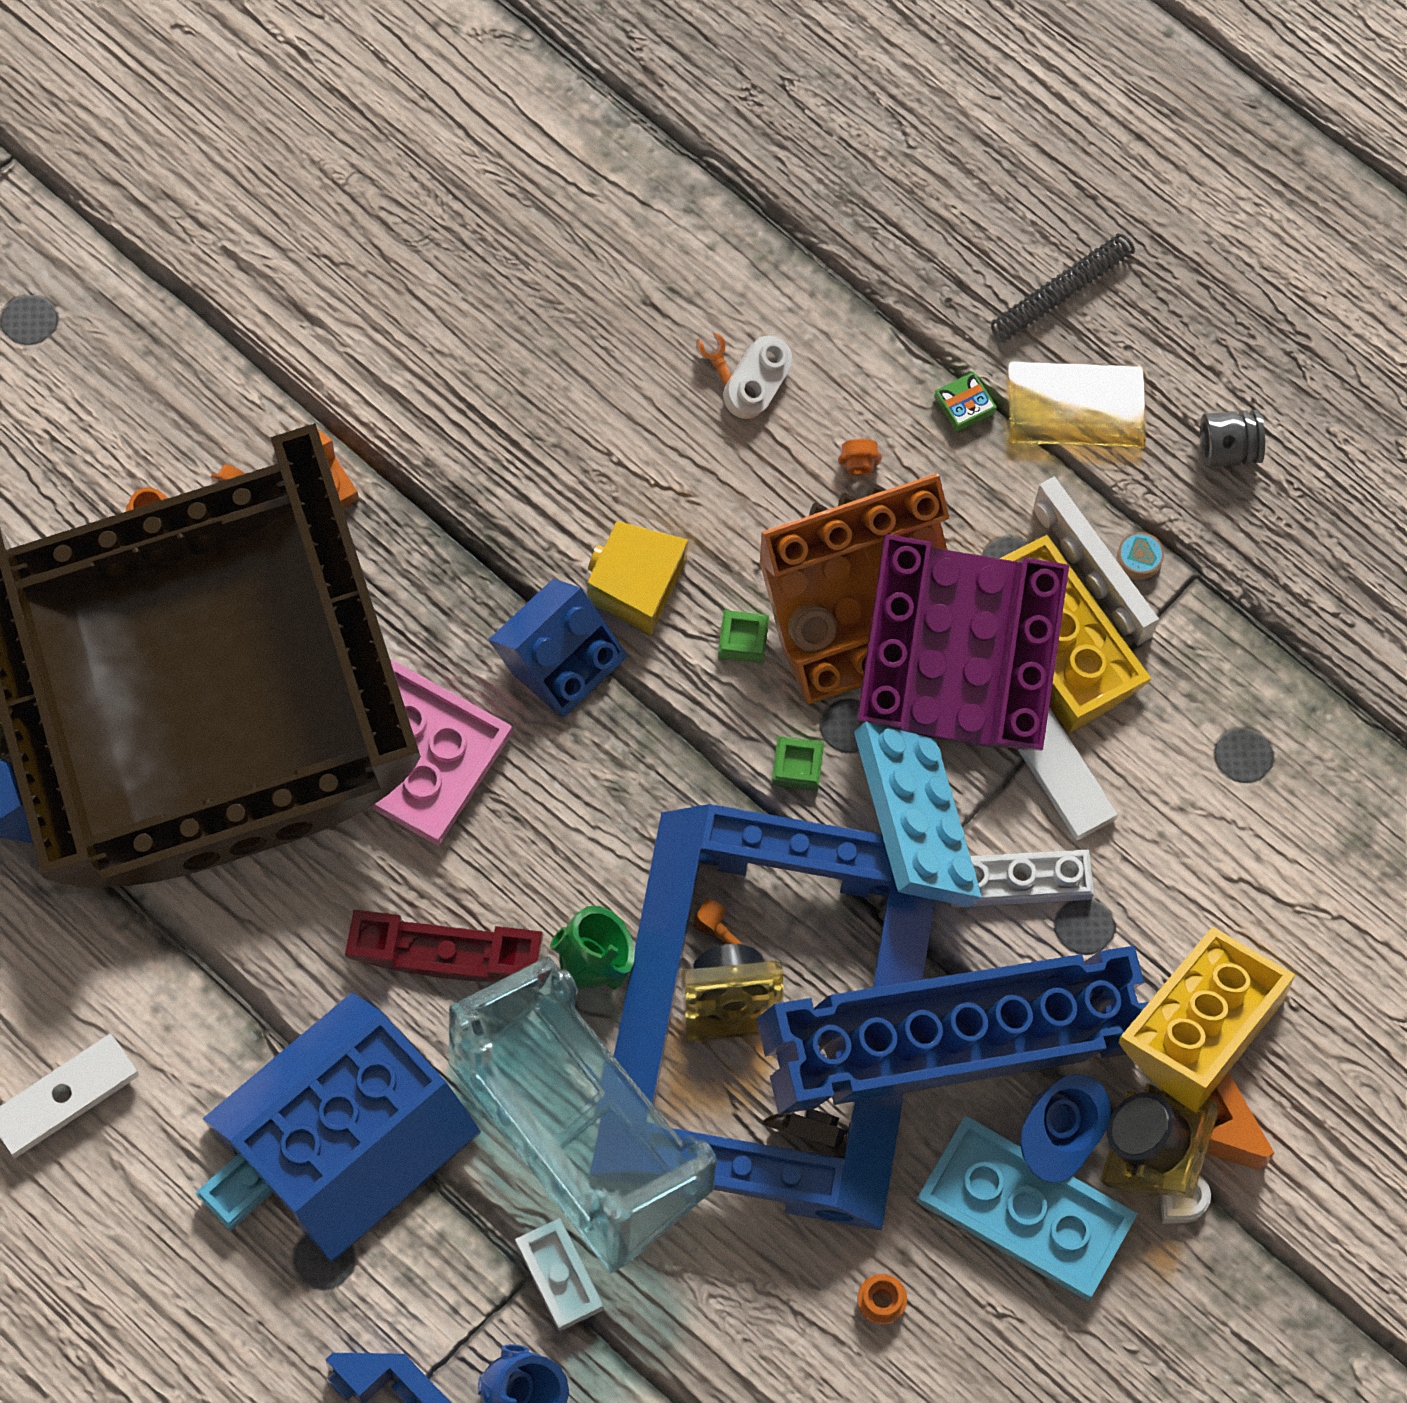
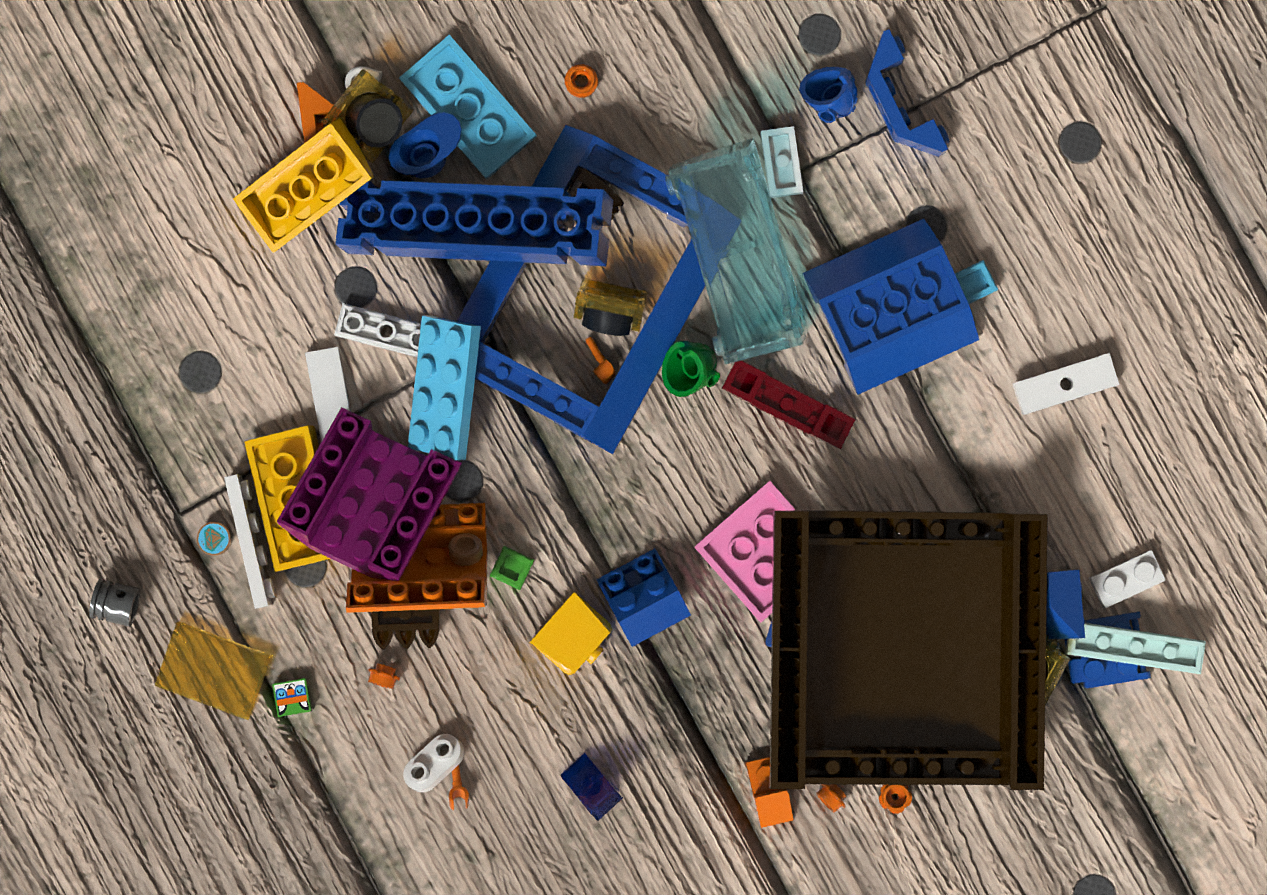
camera: 160 degrees left, 20 degrees up
(546, 403) = (591, 786): none -> clear blue slope
(798, 763) = (507, 462): bright green tile -> none
(1052, 290) = (189, 770): dark grey piece -> none

